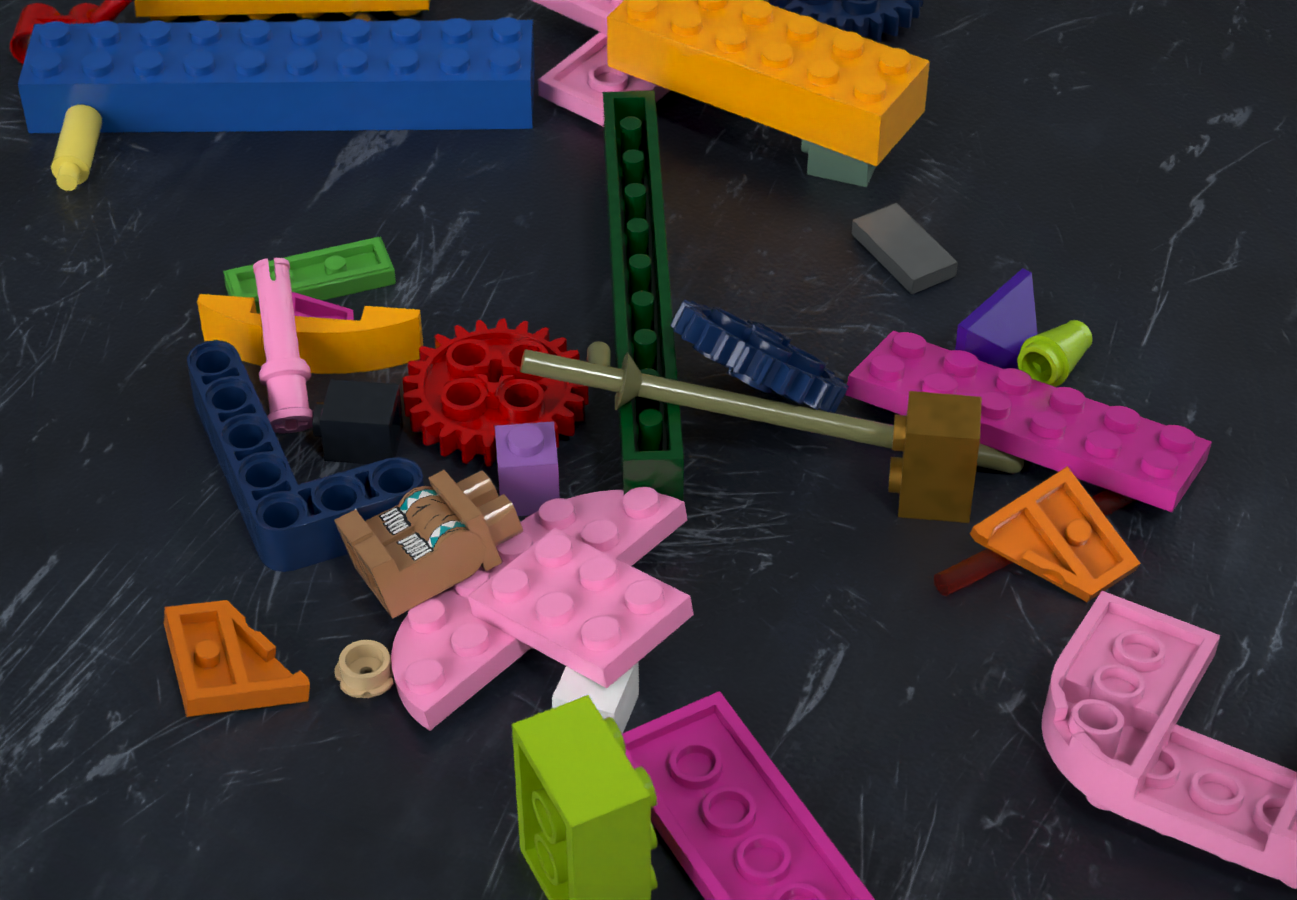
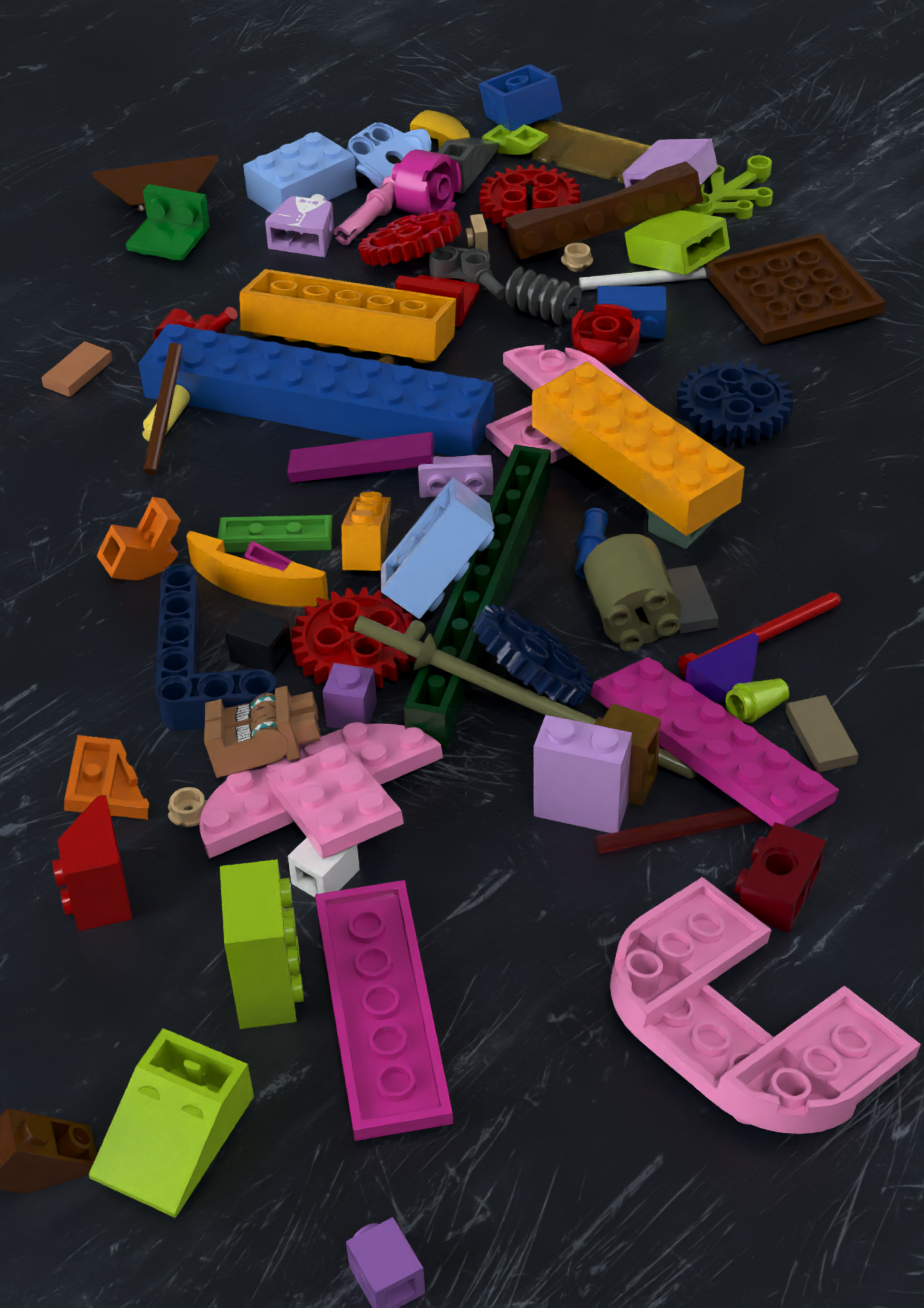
camera: 20 degrees right, 0 degrees up
(79, 140) = (163, 409): none -> reddish brown bar
(137, 335) = (143, 550): none -> orange brick
(284, 370) = (221, 595): bright pink pin -> none
(287, 784) = (92, 870): none -> red slope
(387, 152) = (361, 457): none -> magenta tile
(442, 249) = (365, 532): none -> light orange slope
(524, 153) = (470, 470): none -> lavender bracket
(573, 244) = (437, 549): none -> light blue brick
(749, 203) = (591, 536): none -> blue pin
(842, 249) = (632, 591): none -> olive cylinder
(899, 494) = (581, 774): none -> lavender brick
(946, 326) = (776, 625): none -> red bar
(1059, 537) = (689, 831): orange wing -> none
(1153, 378) = (821, 733): none -> dark tan tile
(1197, 564) = (780, 876): none -> dark red brick

